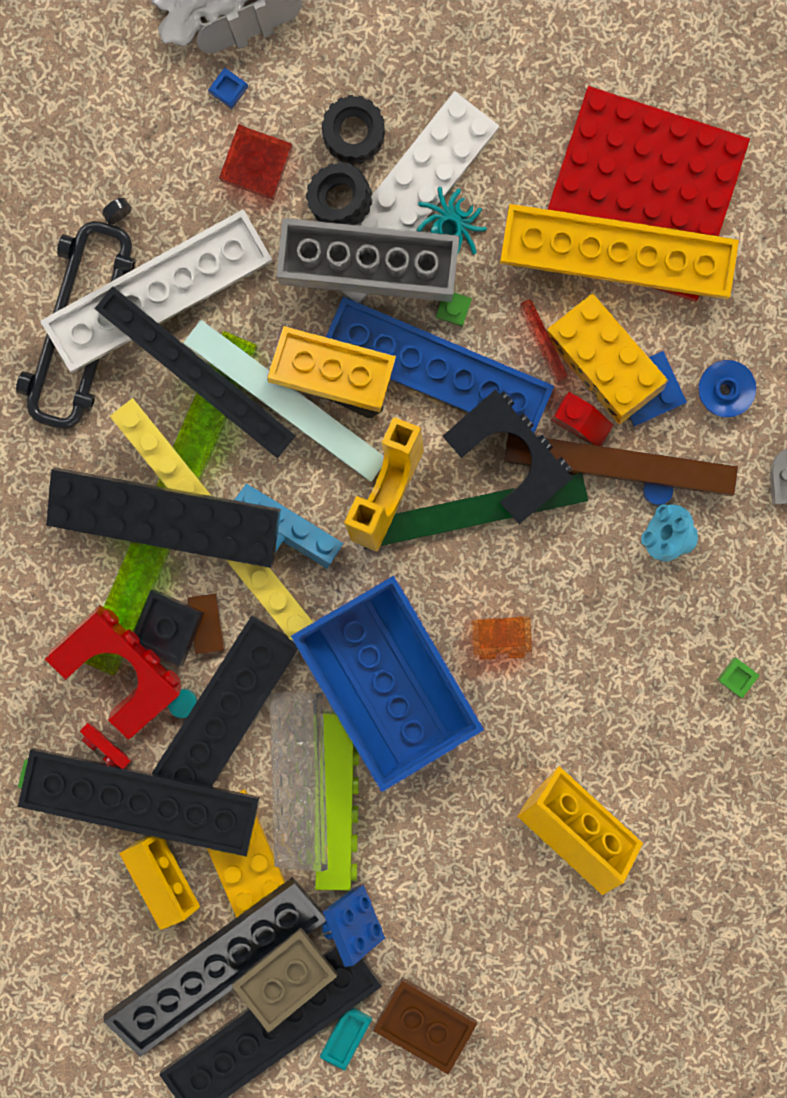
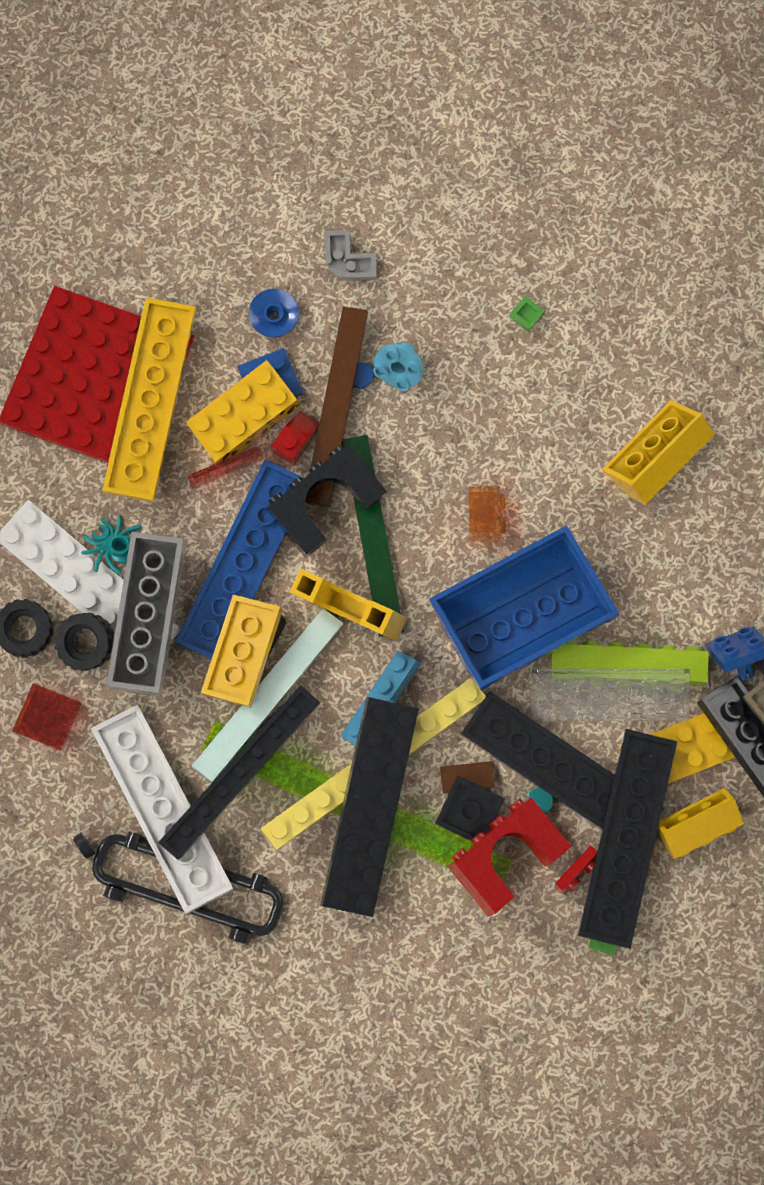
camera: 90 degrees left, 10 degrees down
(454, 311) = (194, 545): bright green plate -> none

